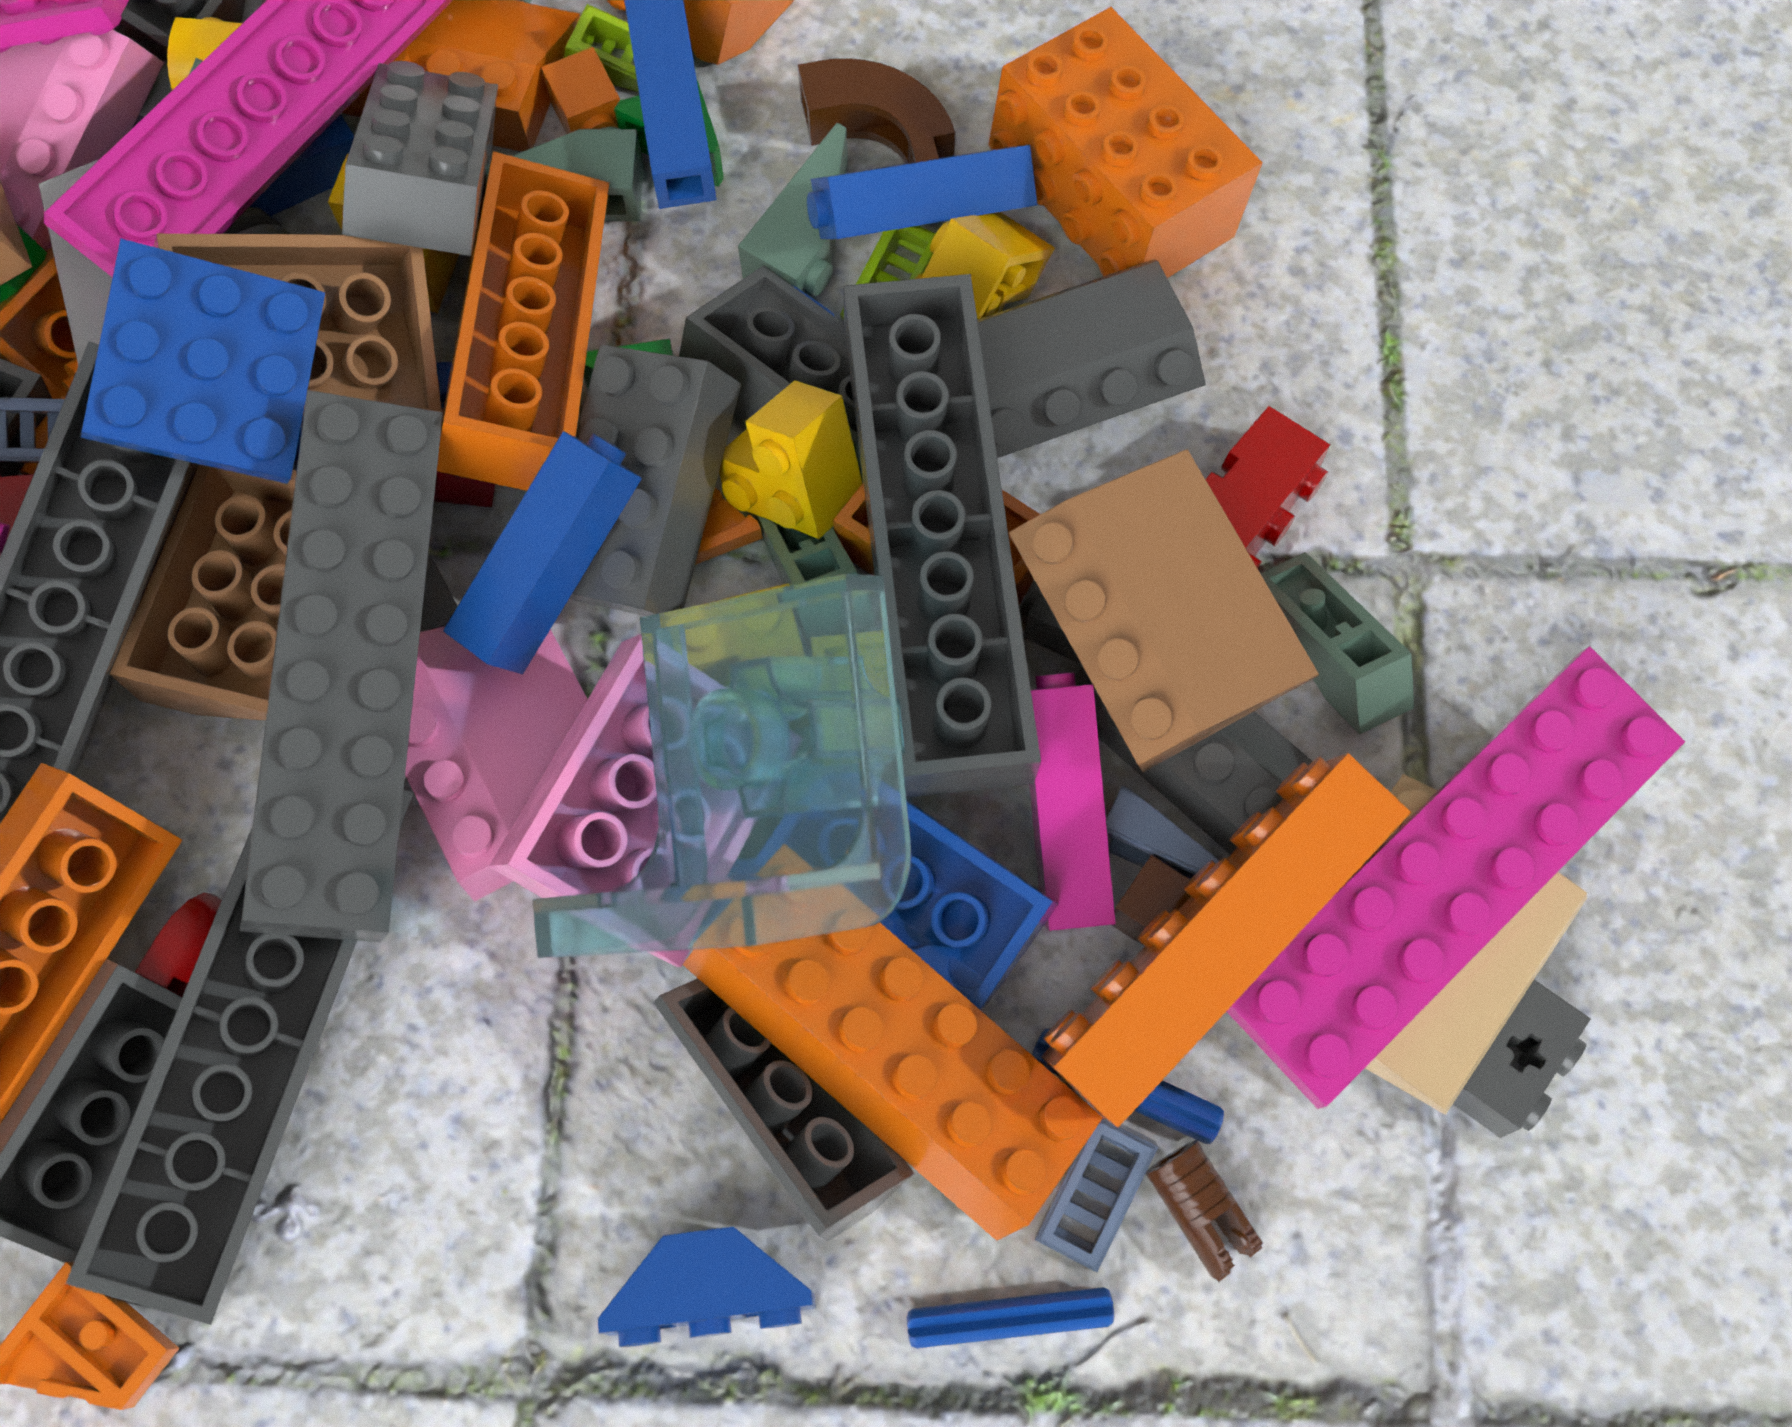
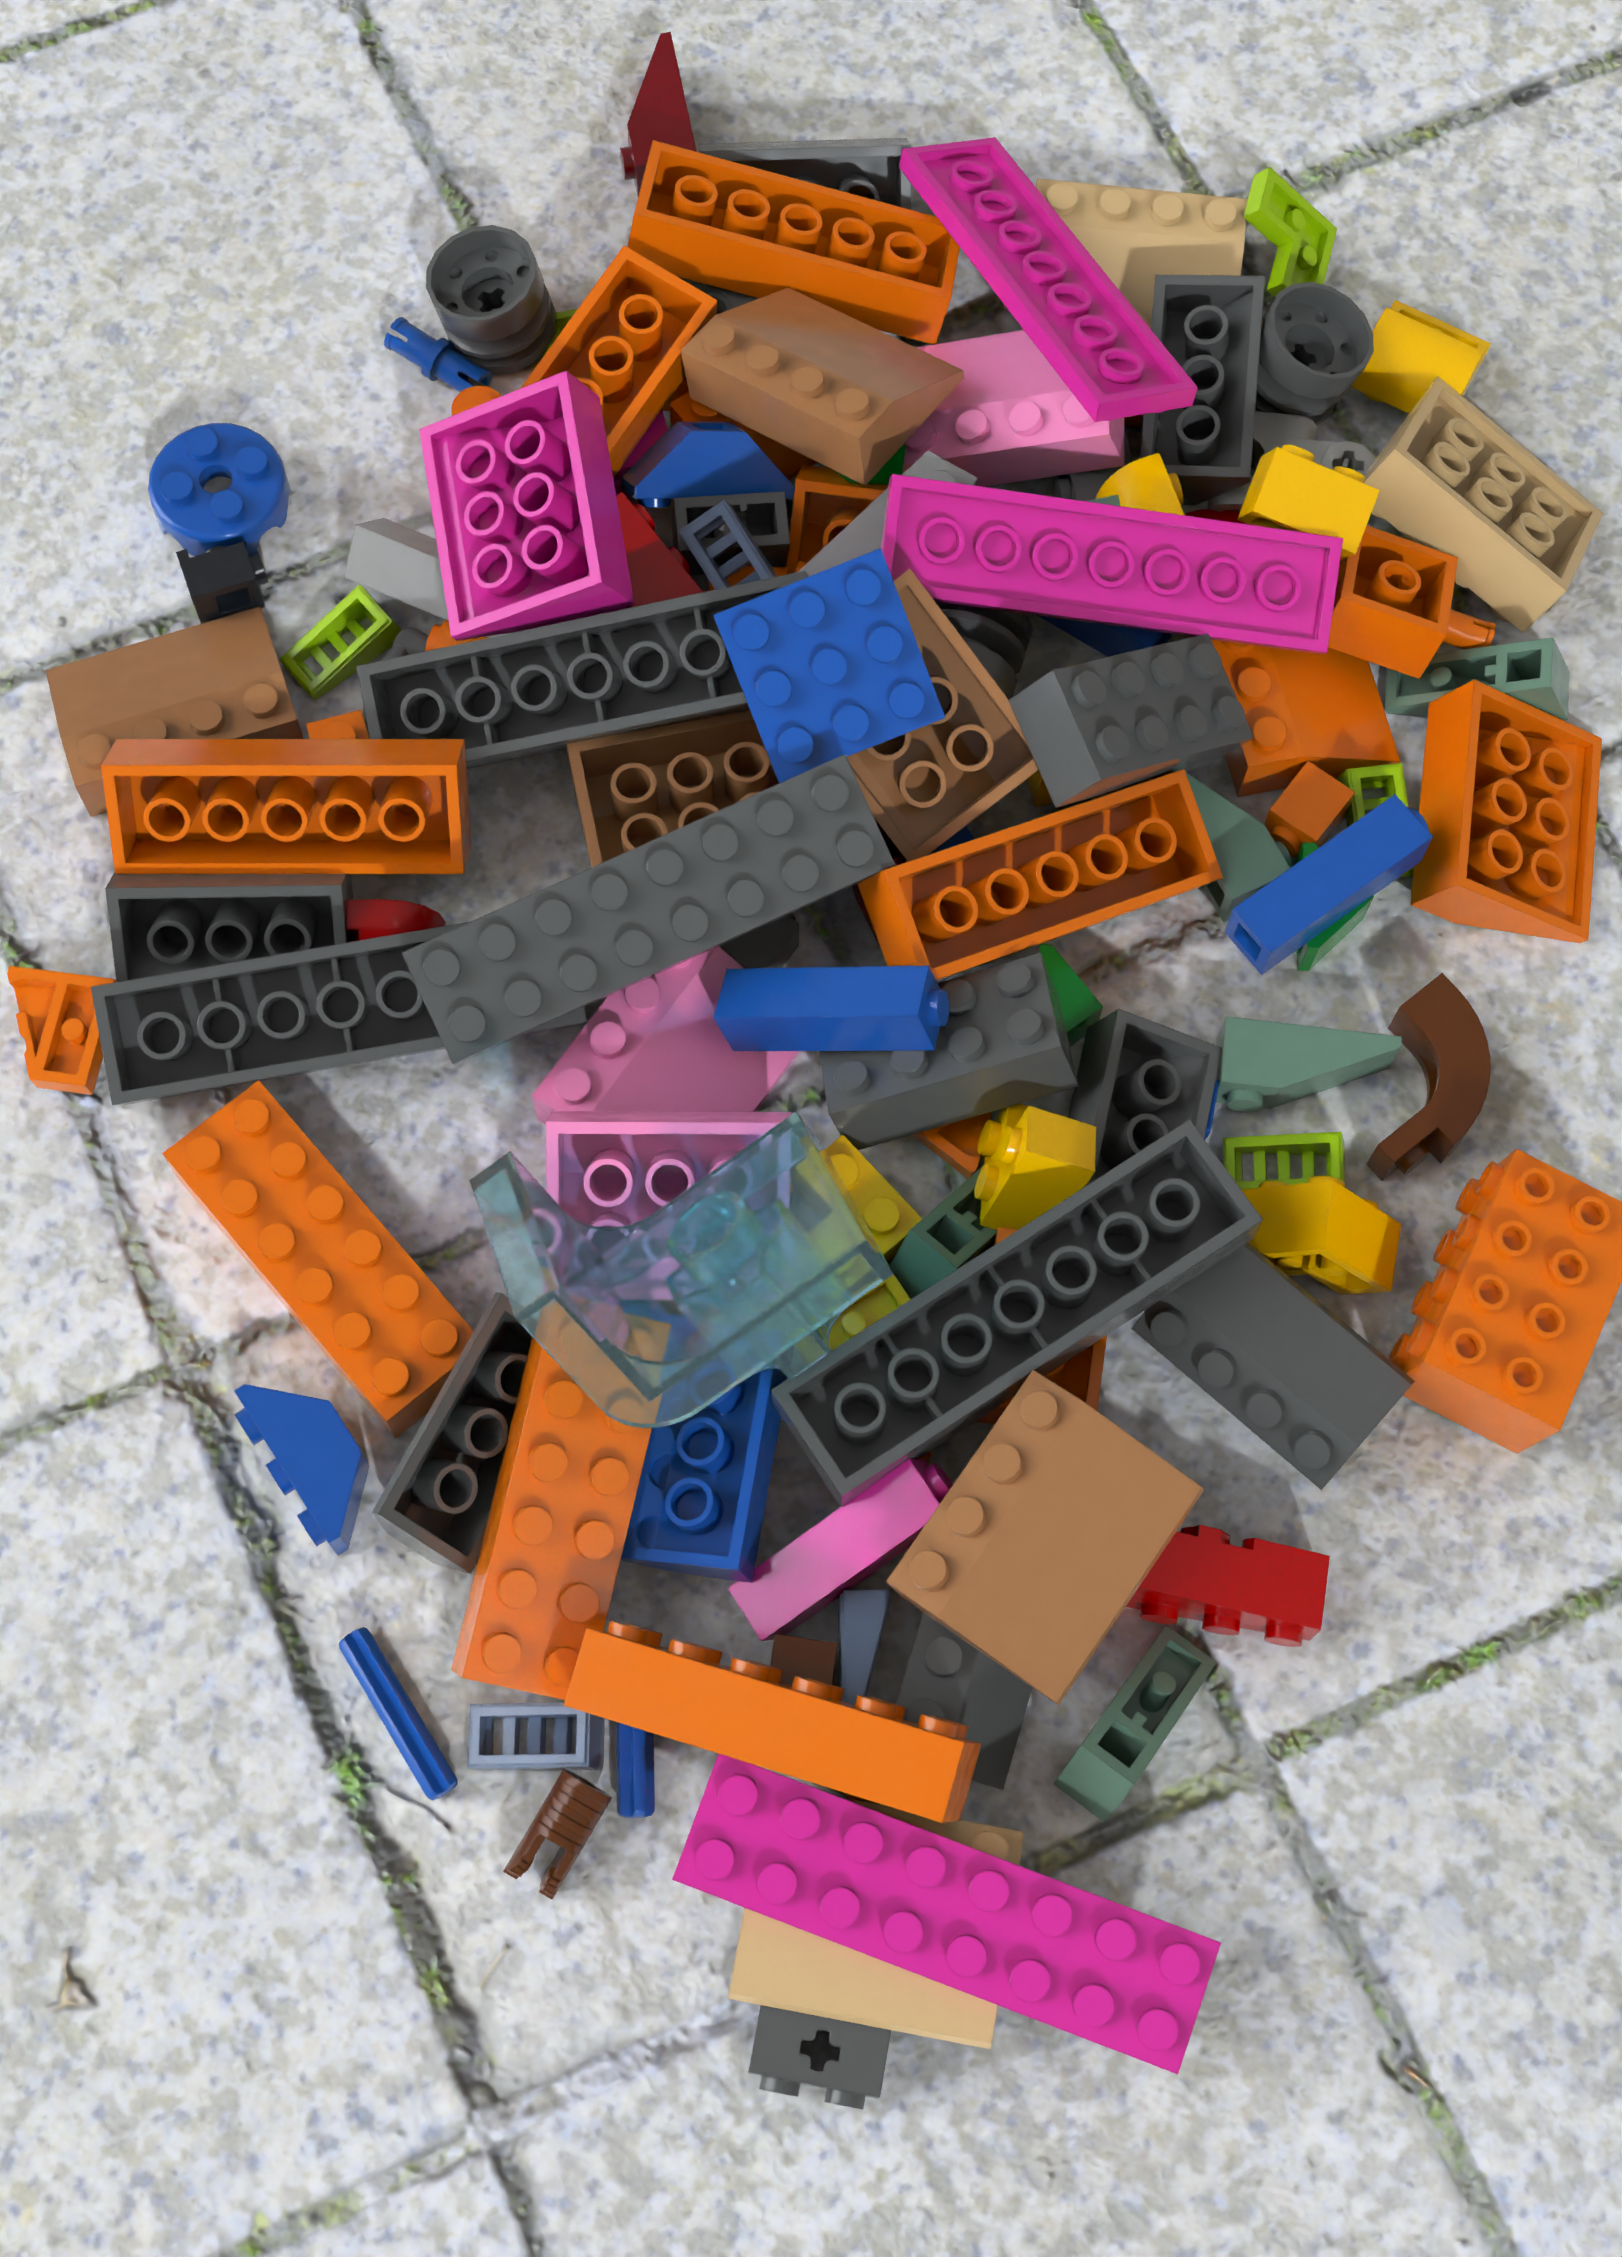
camera: 60 degrees right, 0 degrees up
(498, 1174) = (323, 1255): none -> orange brick
(922, 192) = (1361, 1145): blue brick -> none

